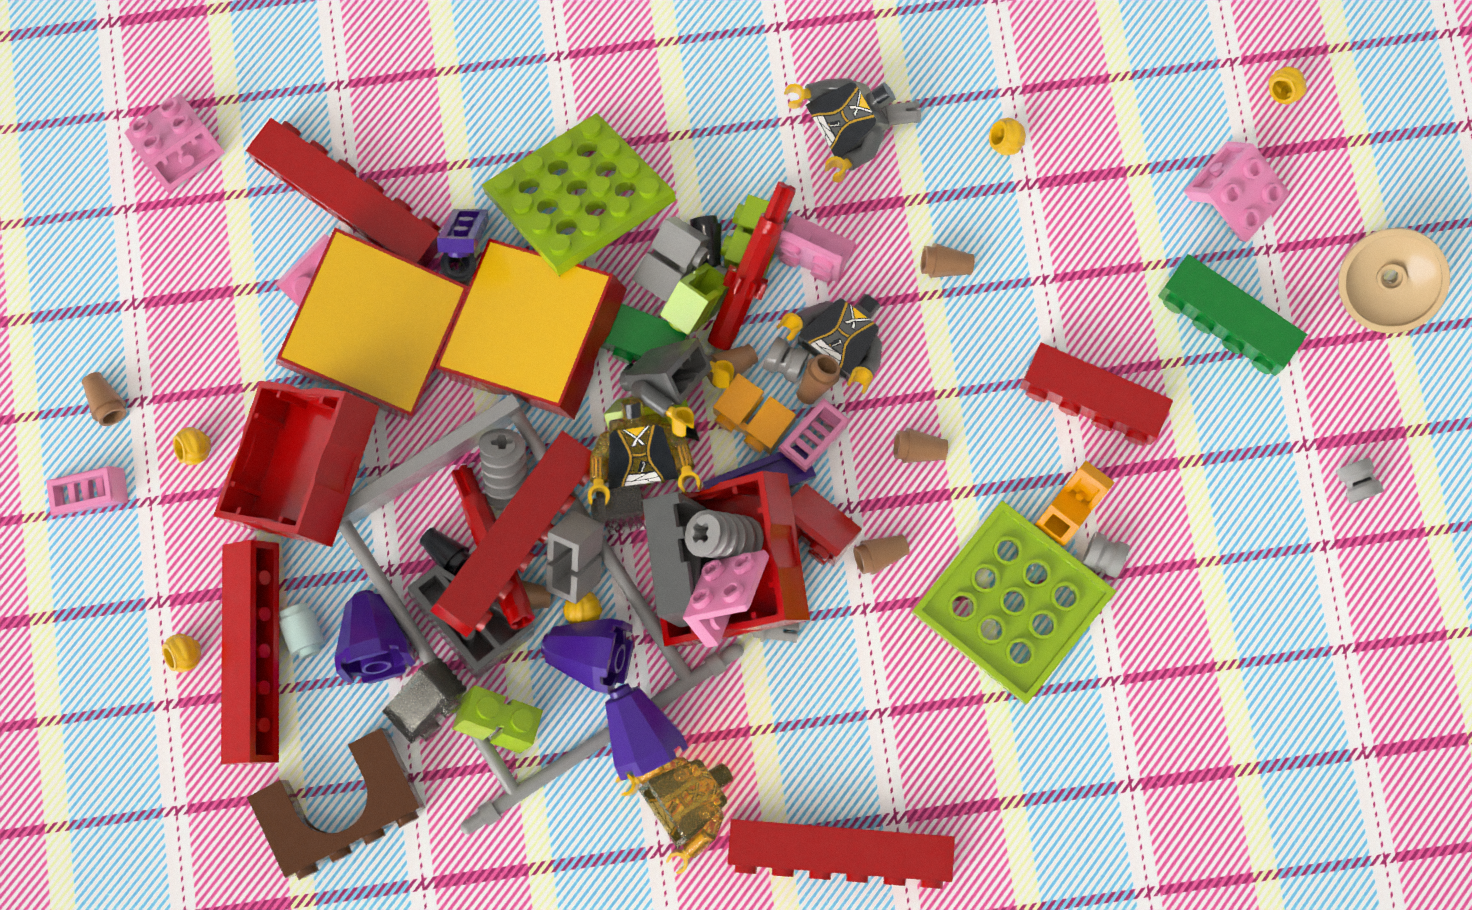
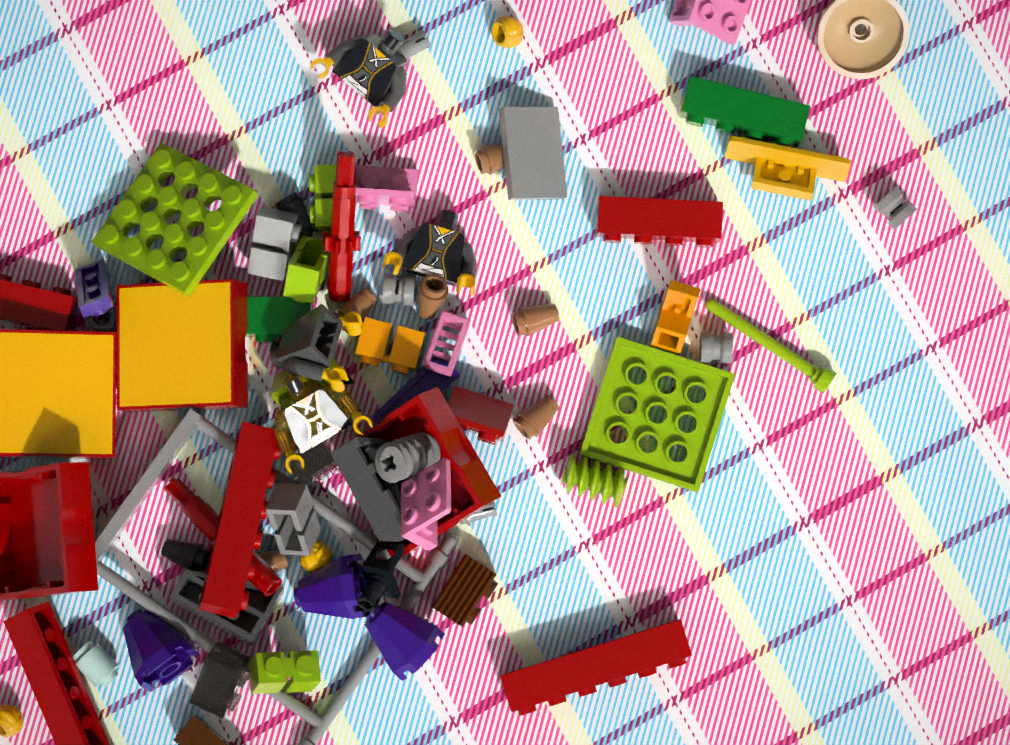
camera: 25 degrees left, 5 degrees up
(502, 465) = (205, 468): light grey piece -> none
(643, 655) = (380, 575): none -> black bracket
(685, 802) = (459, 677): clear yellow torso -> none
(729, 710) = (465, 590): none -> reddish brown brick
(917, 645) = (594, 480): none -> lime piece
(985, 271) = (532, 153): none -> light grey tile
(1208, 631) = (819, 376): none -> lime piece
(1256, 392) = (785, 168): none -> yellow bracket

